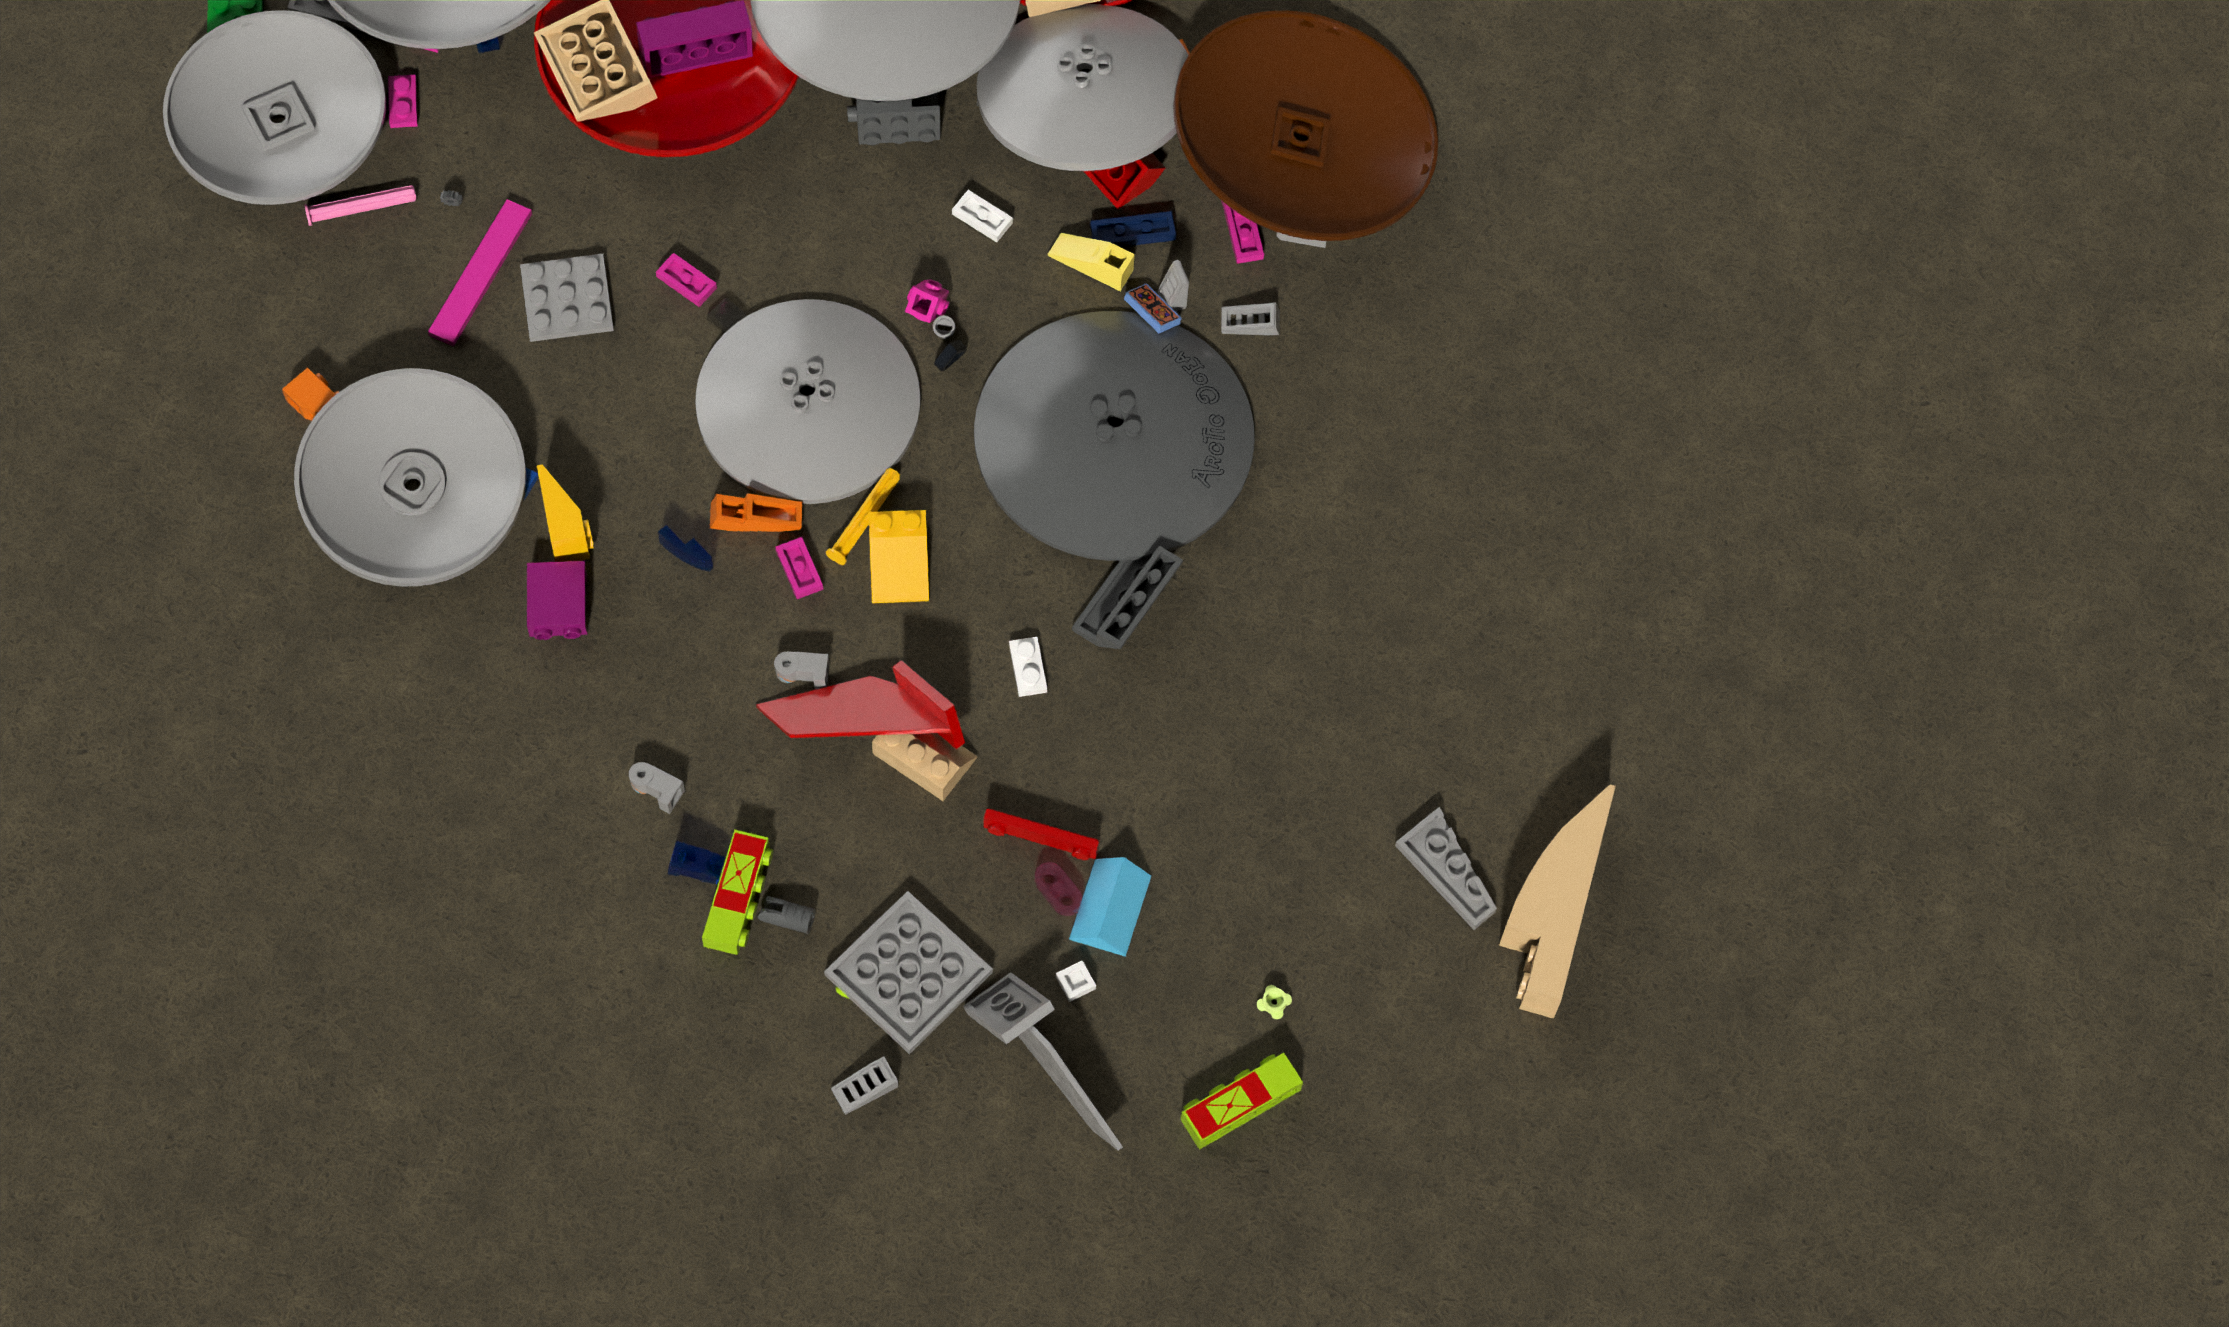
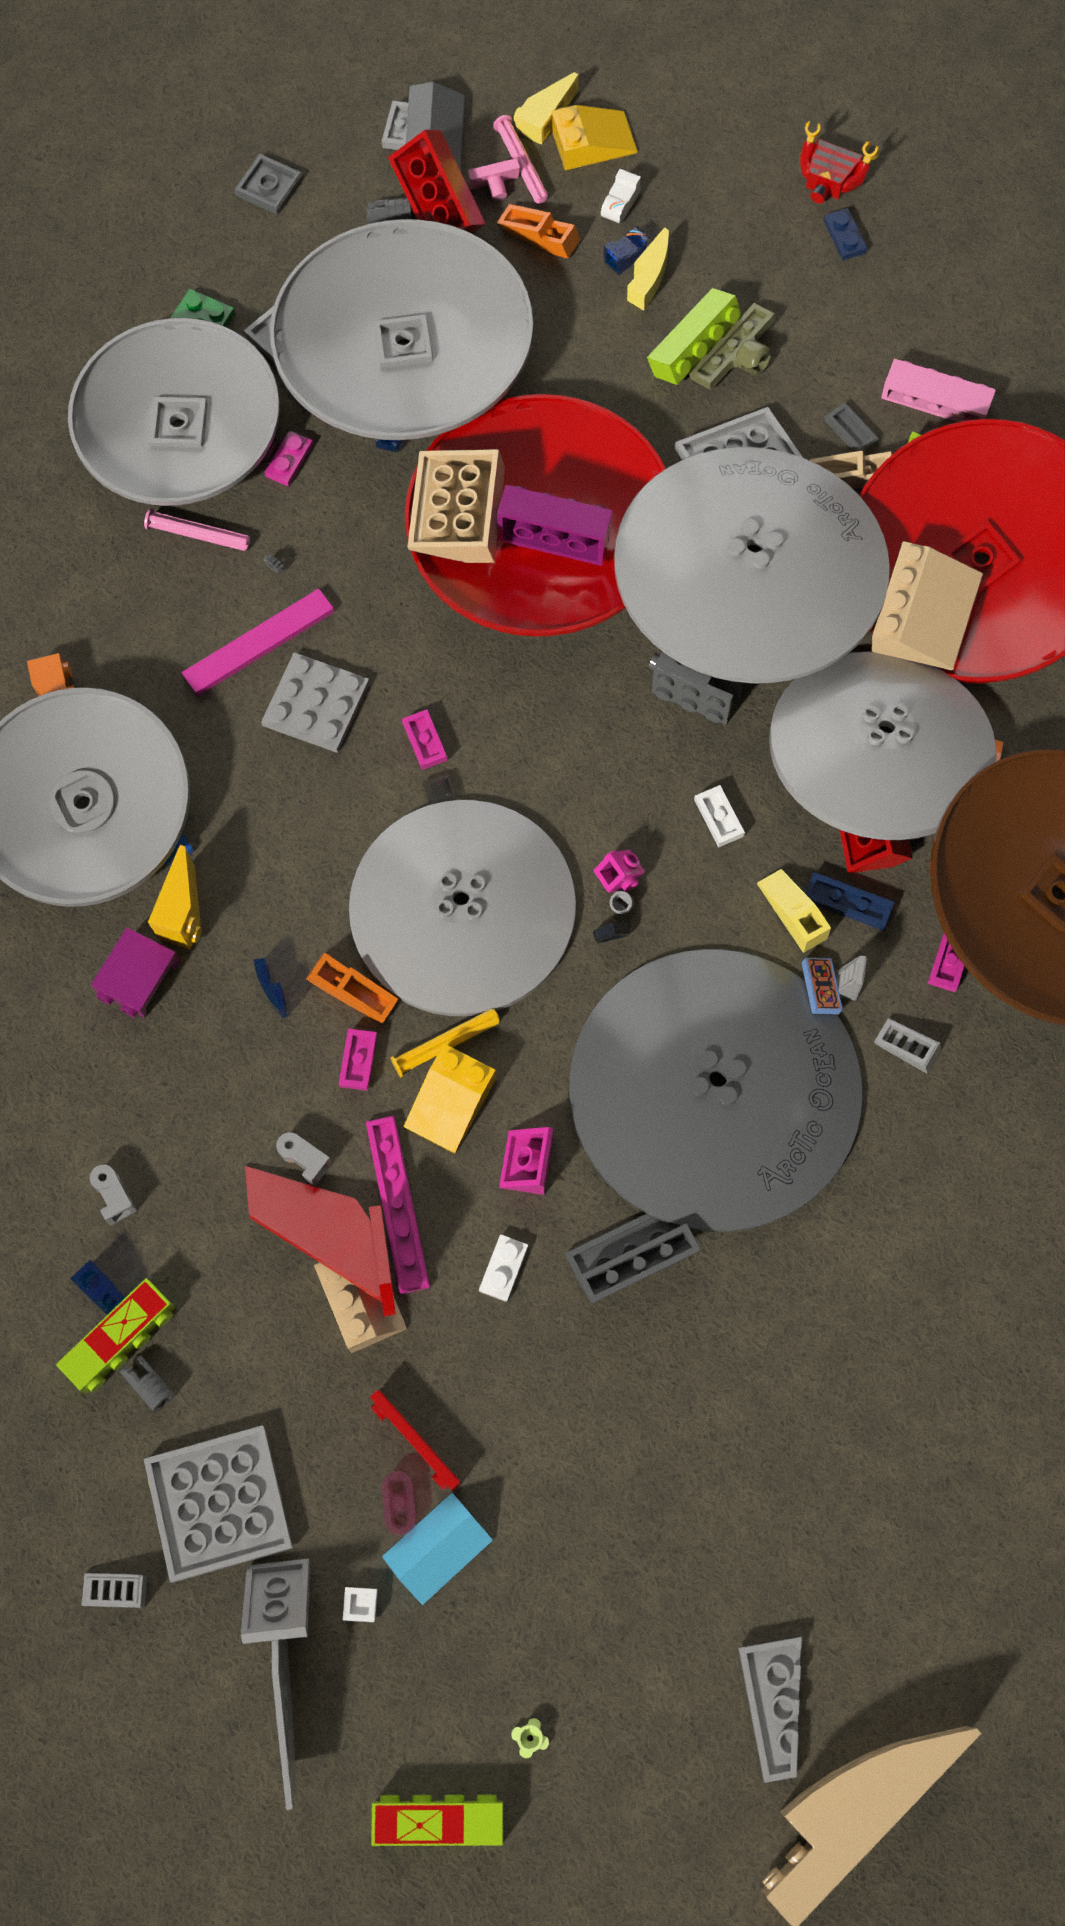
camera: 40 degrees right, 5 degrees up
(893, 649) = (397, 1205): none -> dark pink tile
(995, 570) = (527, 1160): none -> dark pink slope

